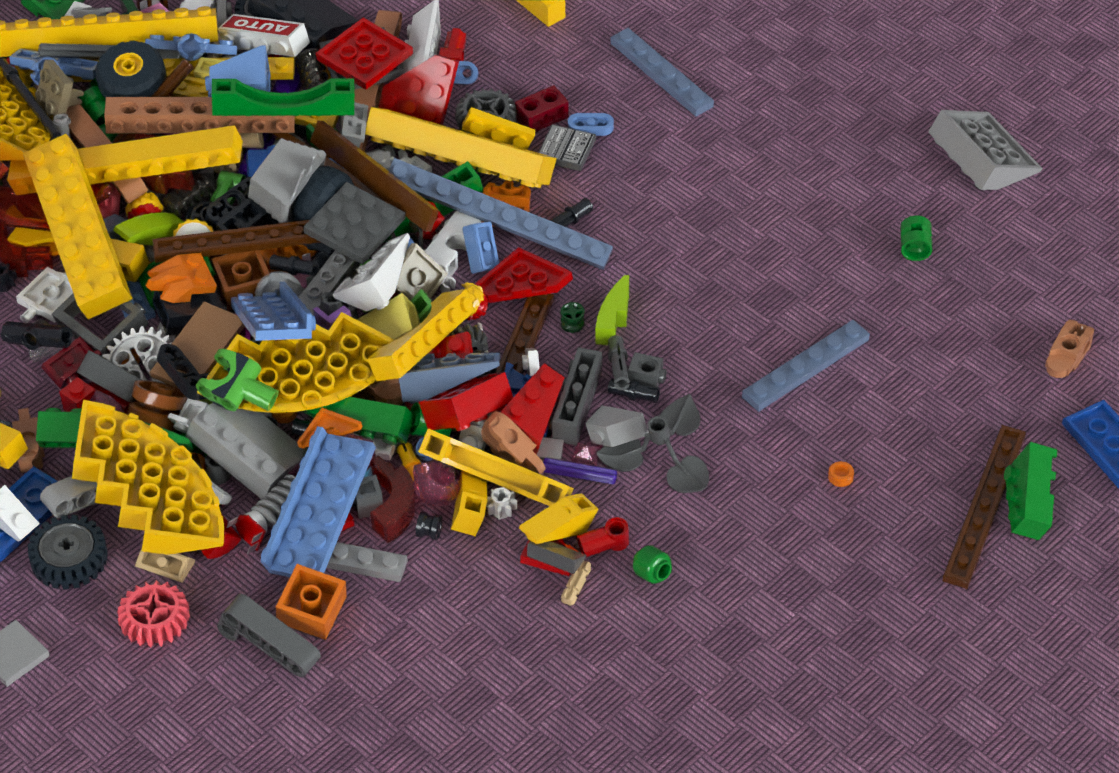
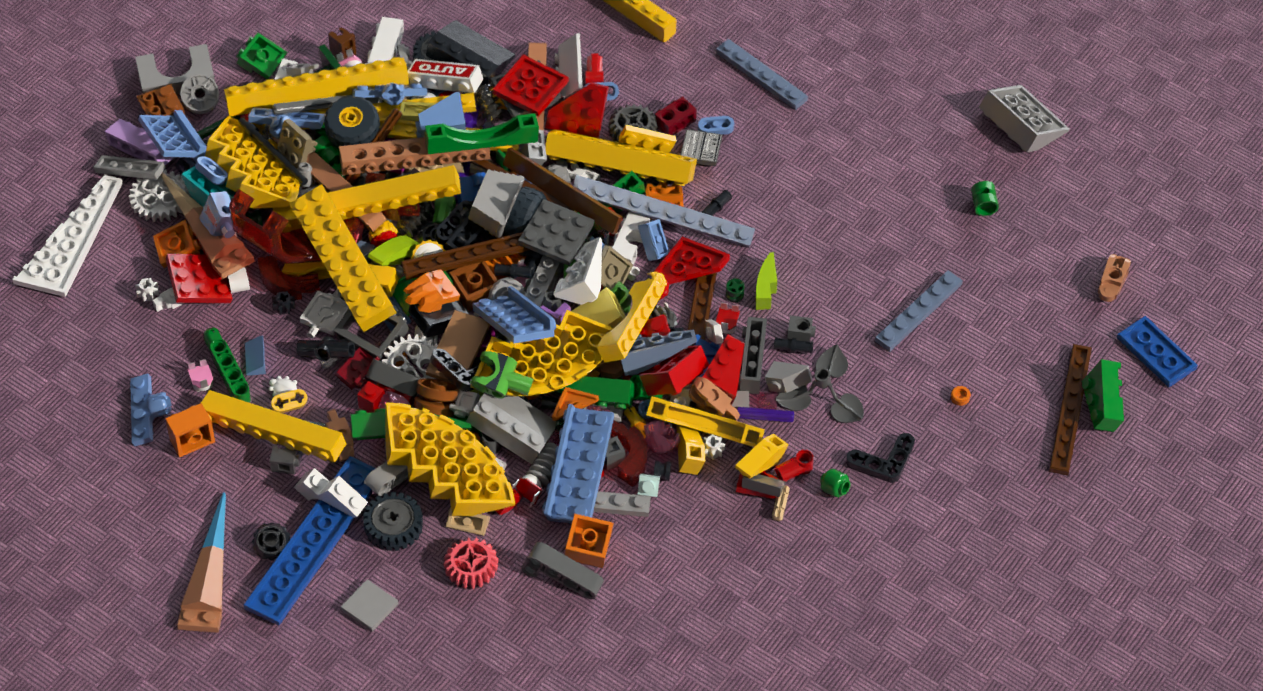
camera: 10 degrees left, 5 degrees up
(407, 541) = (648, 485): none -> light aqua plate
(555, 349) = (728, 318): none -> red piece
(618, 356) = (777, 320): dark grey pin -> none
(723, 550) = (885, 466): none -> black beam

